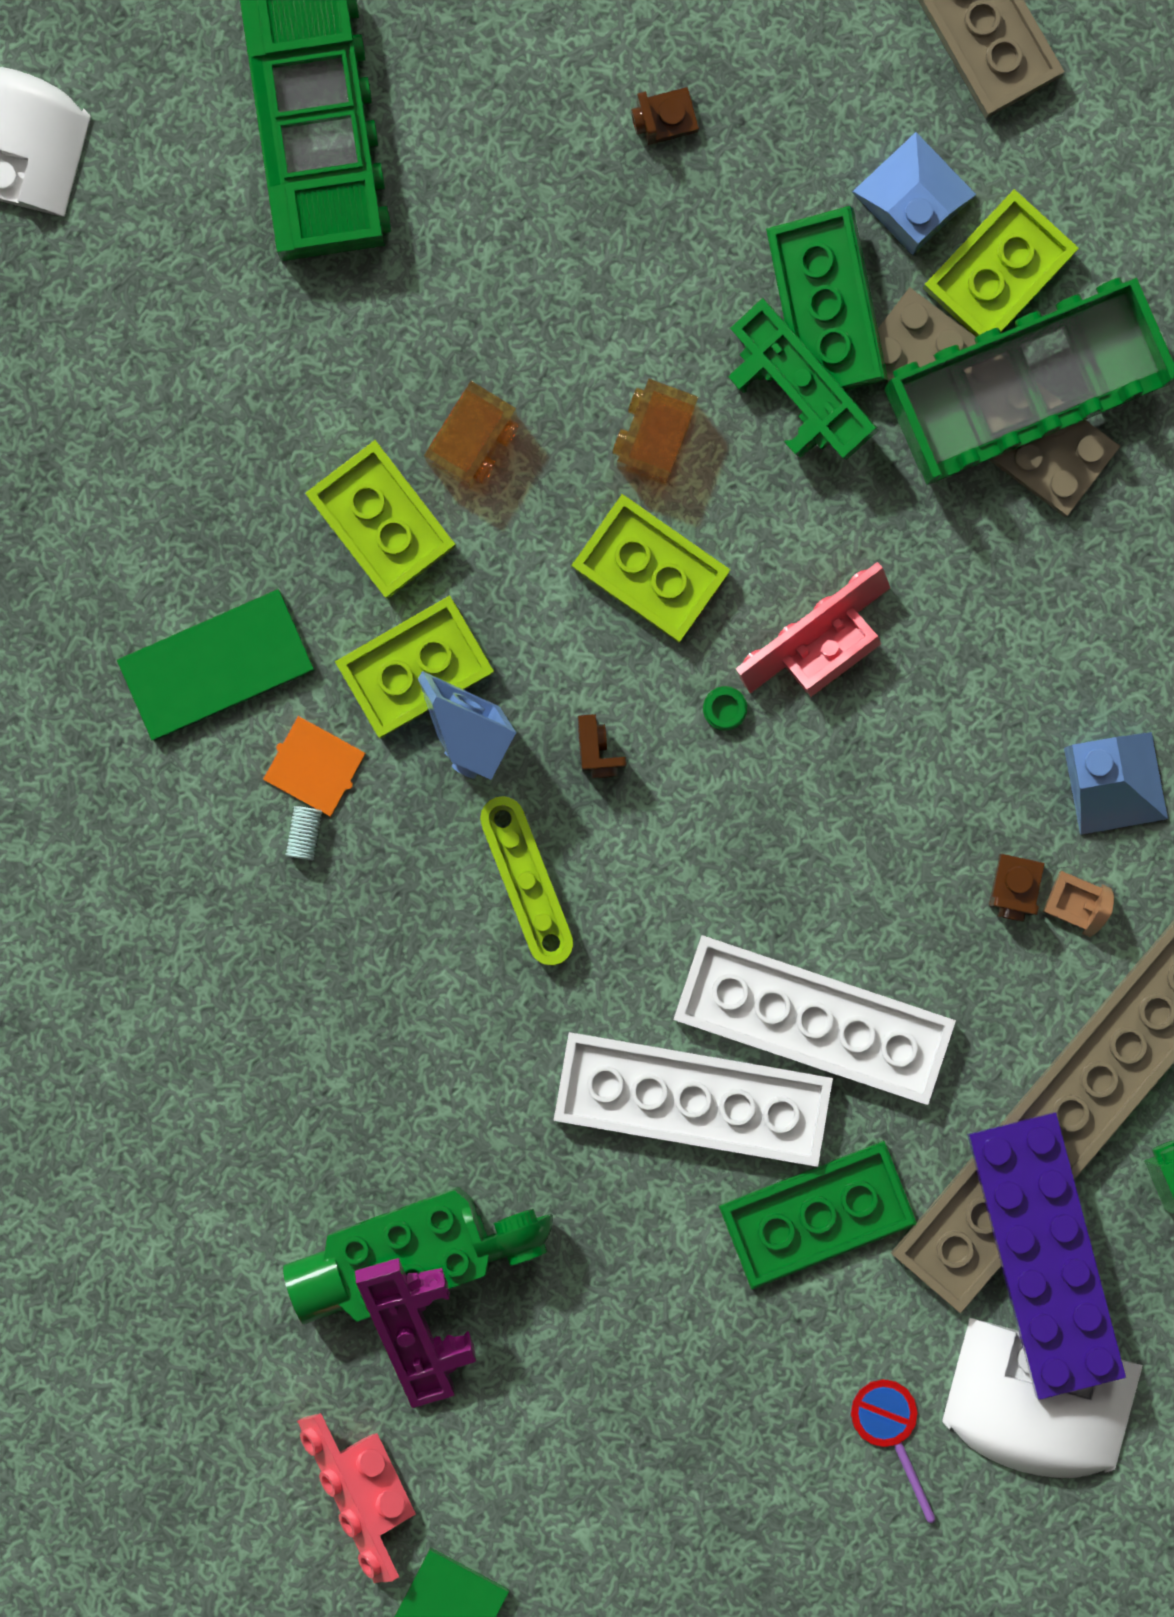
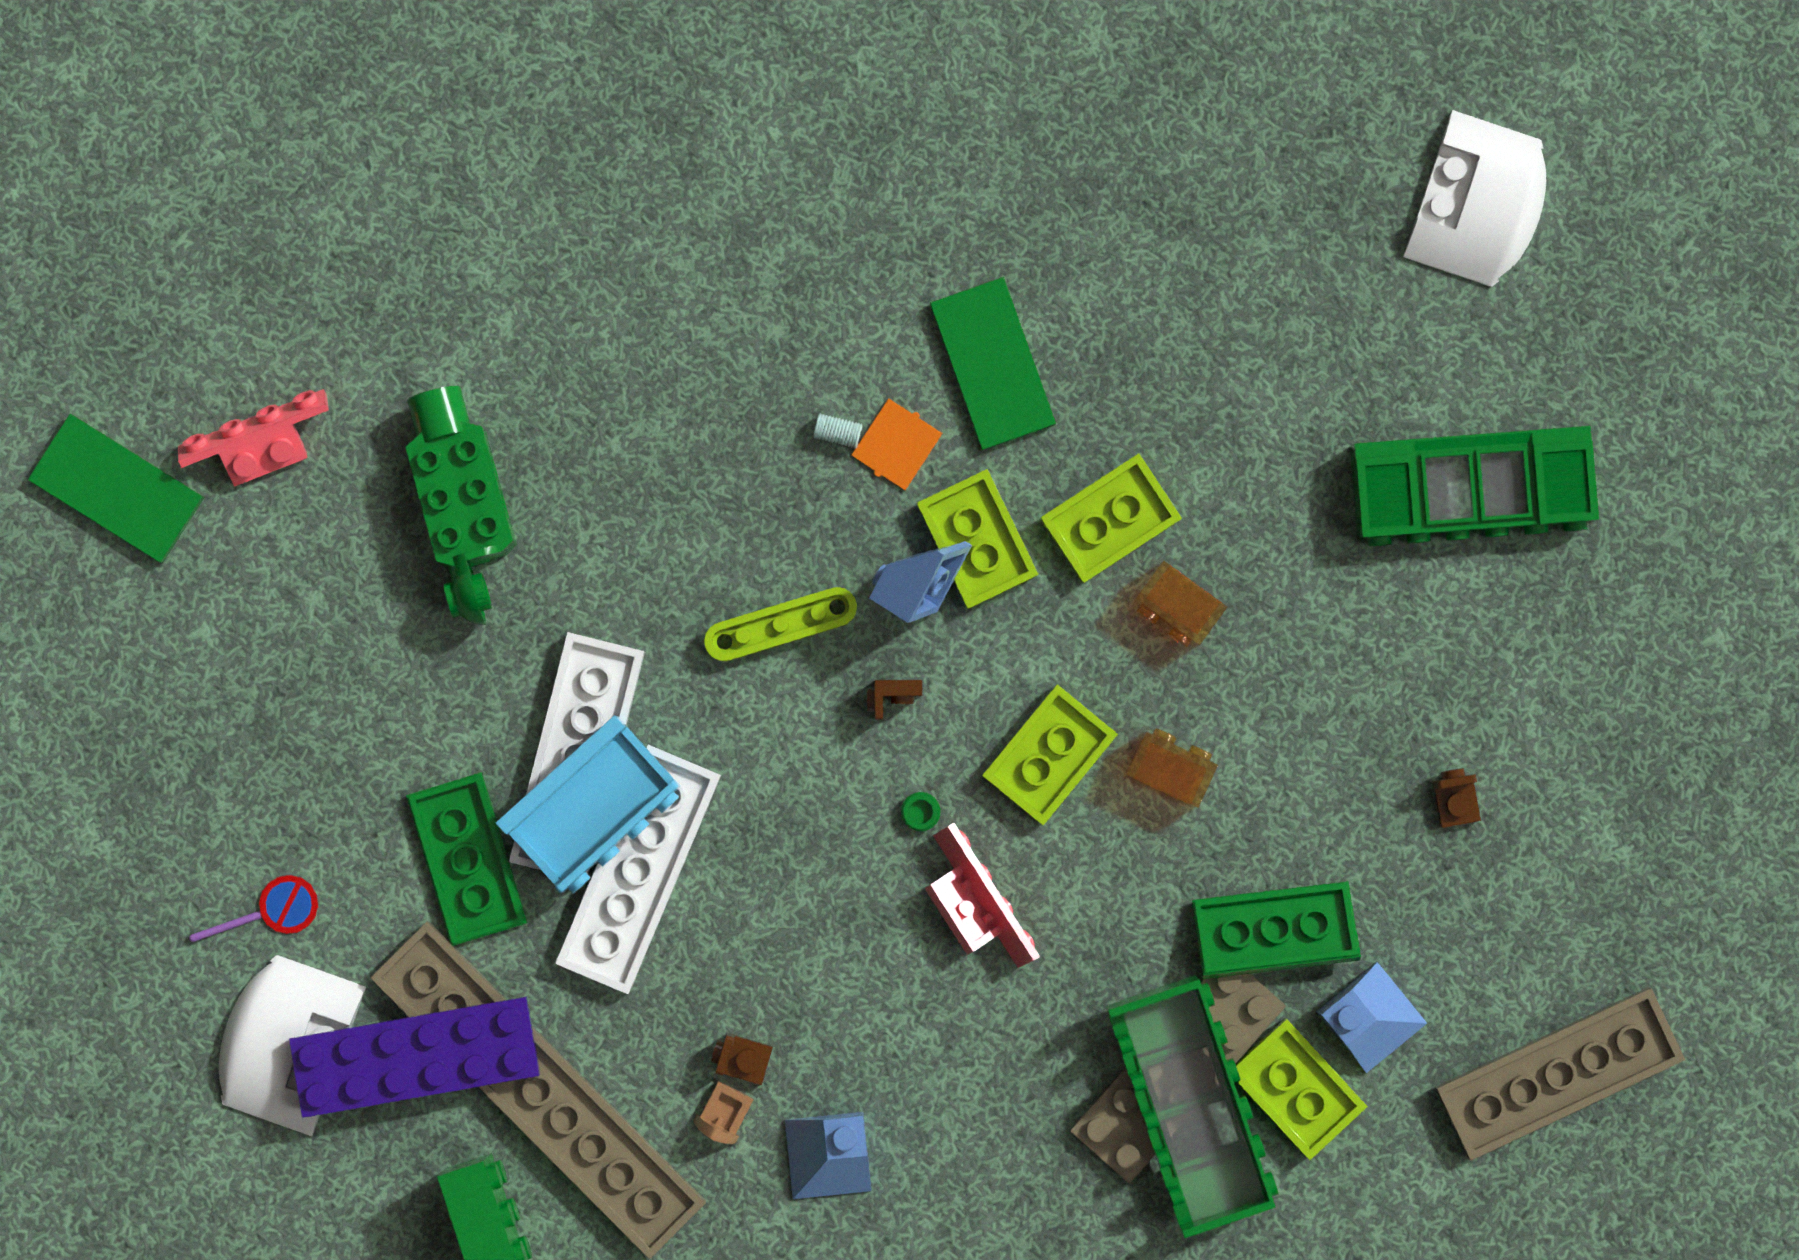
camera: 85 degrees right, 0 degrees up
(396, 1311) = (412, 482): magenta hinge -> none
(748, 1078) = (590, 805): none -> medium azure panel
(780, 355) = (1232, 883): green hinge -> none

